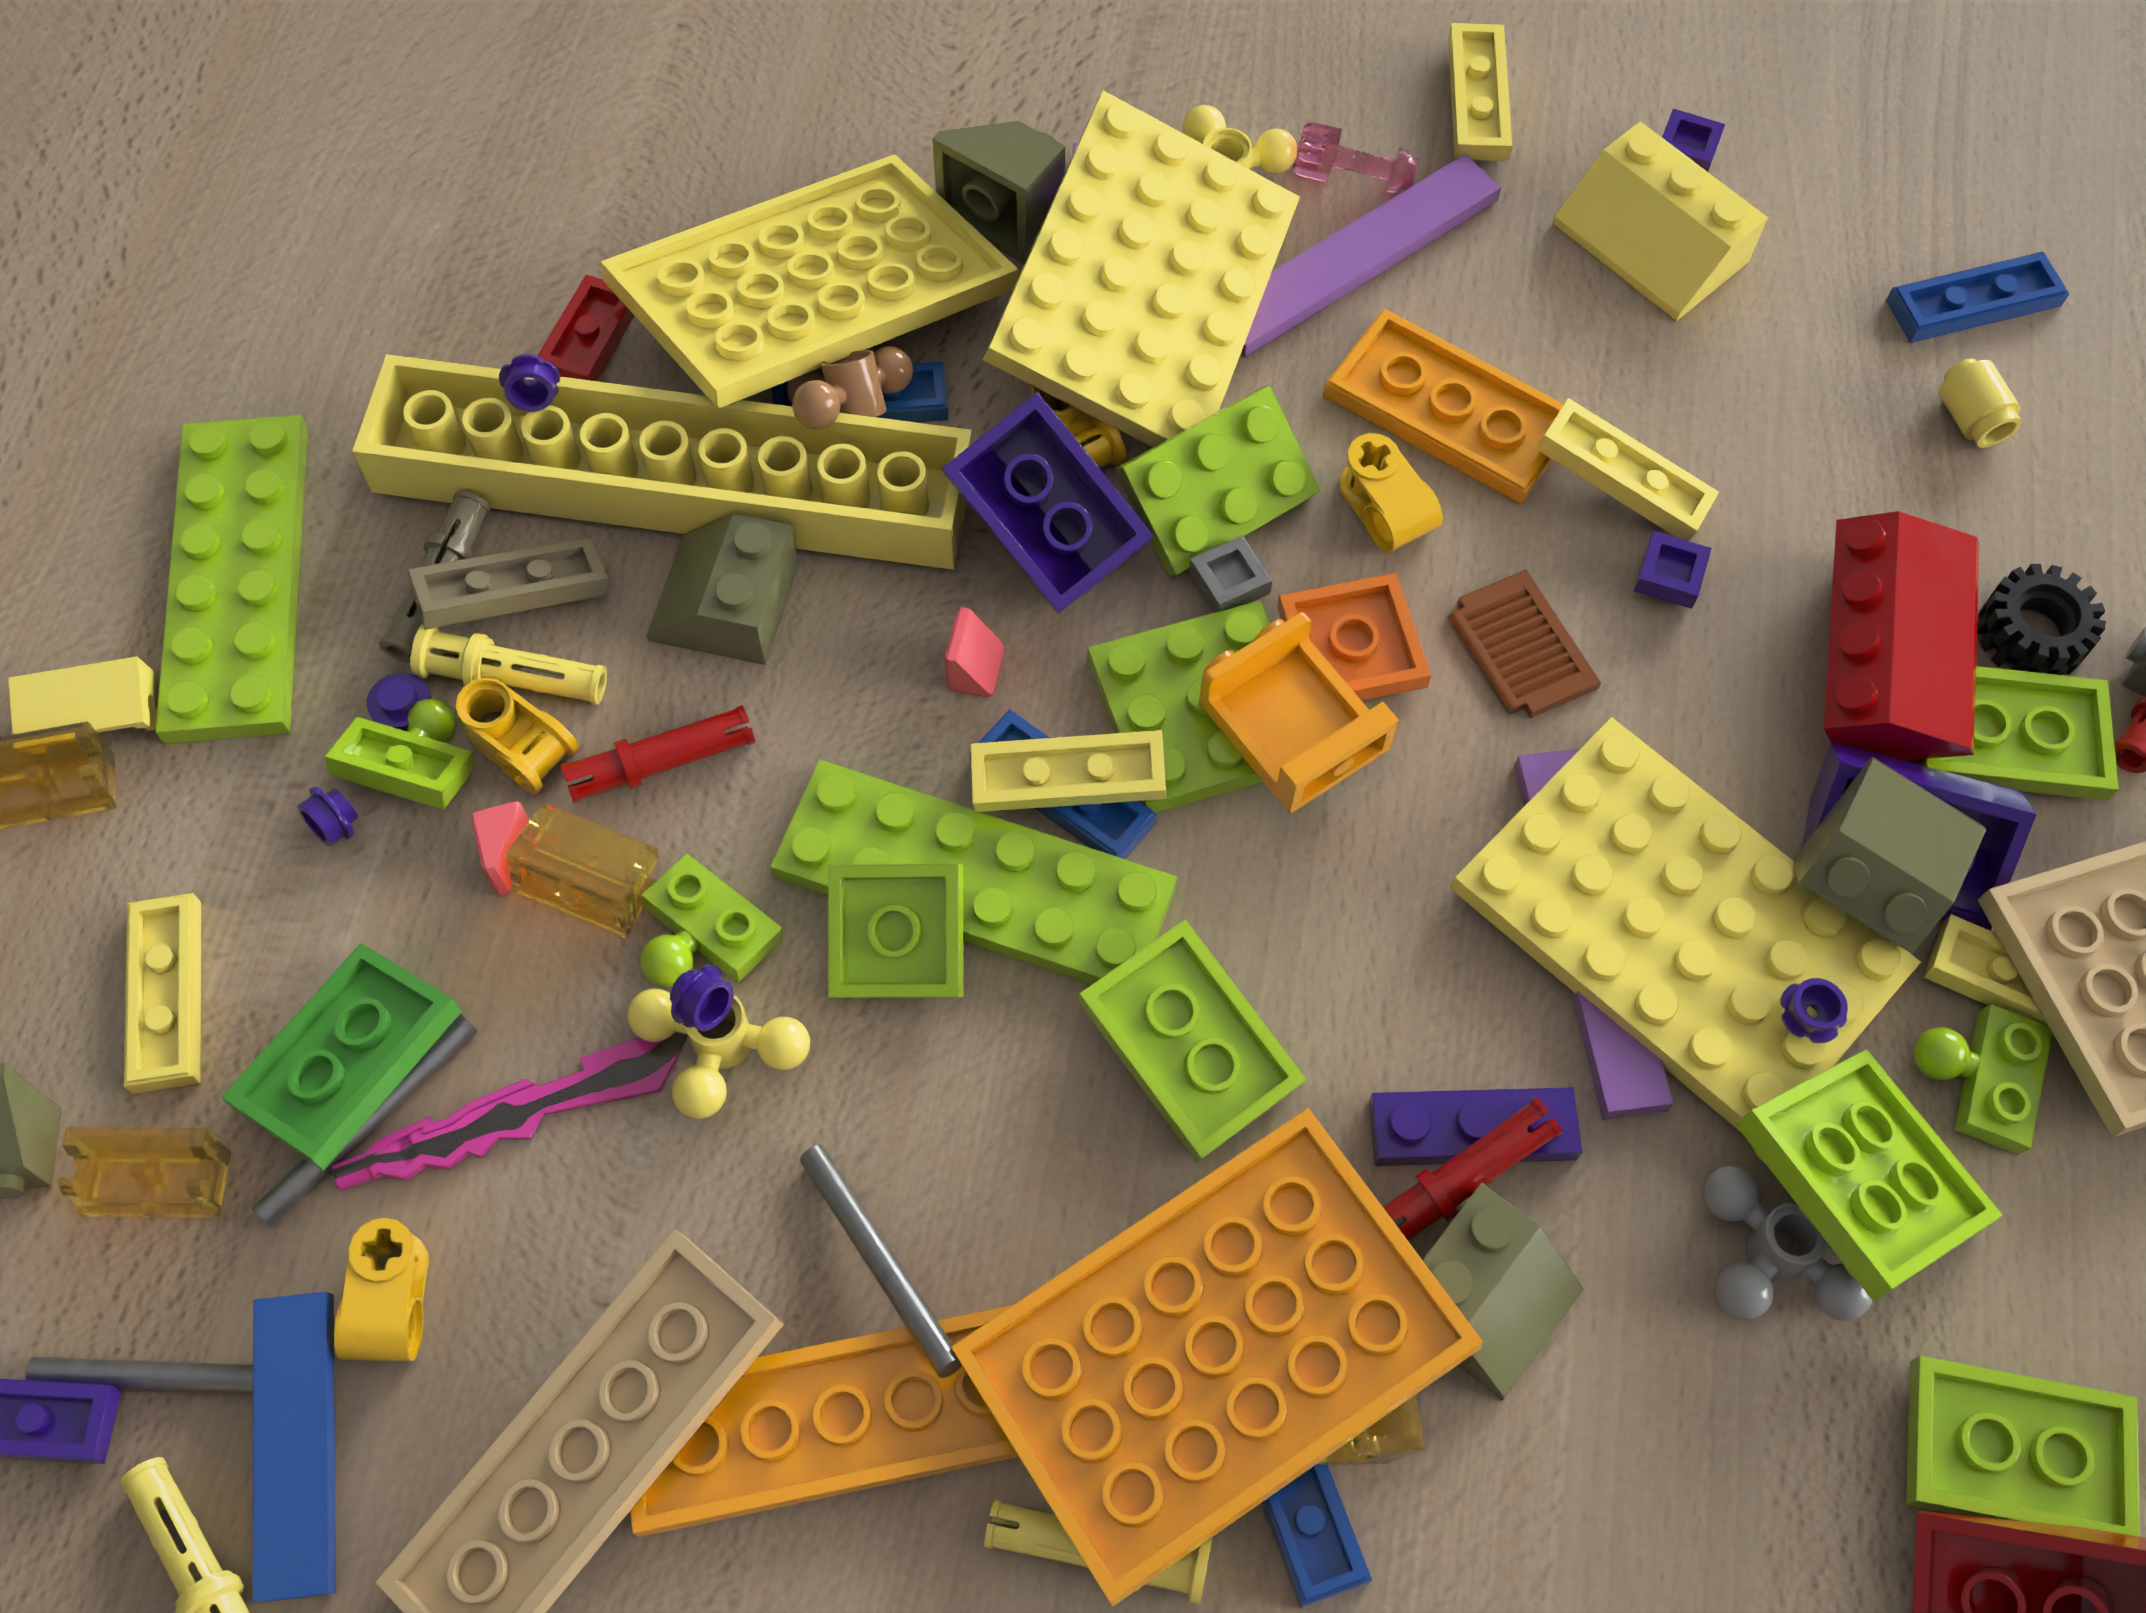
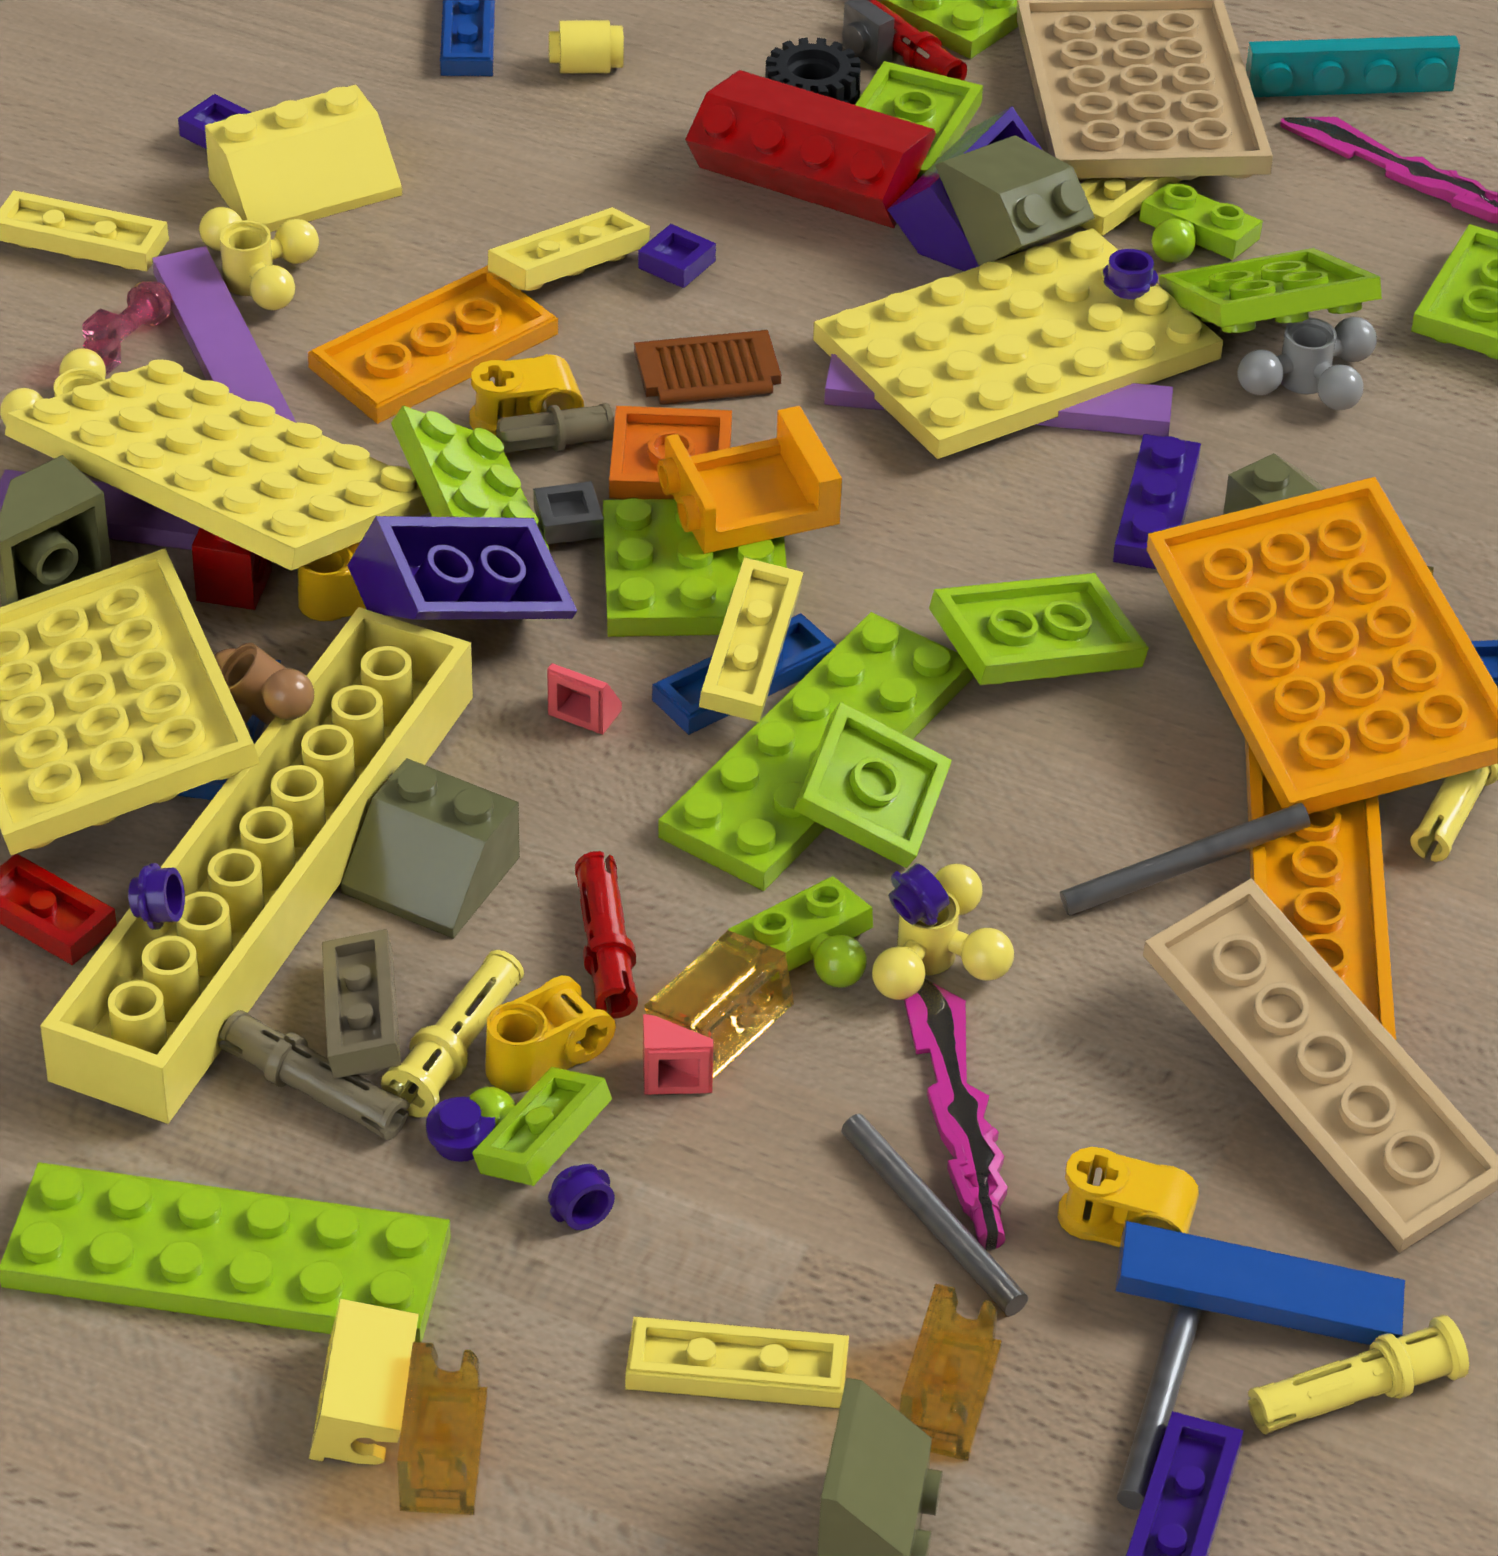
camera: 75 degrees left, 20 degrees down
(341, 1055) = (871, 1200): bright green plate -> none
(1351, 531) = (556, 428): none -> dark tan axle
(1479, 1163) = (1194, 470): red pin -> none
(1494, 227) = (249, 254): none -> light yellow piece

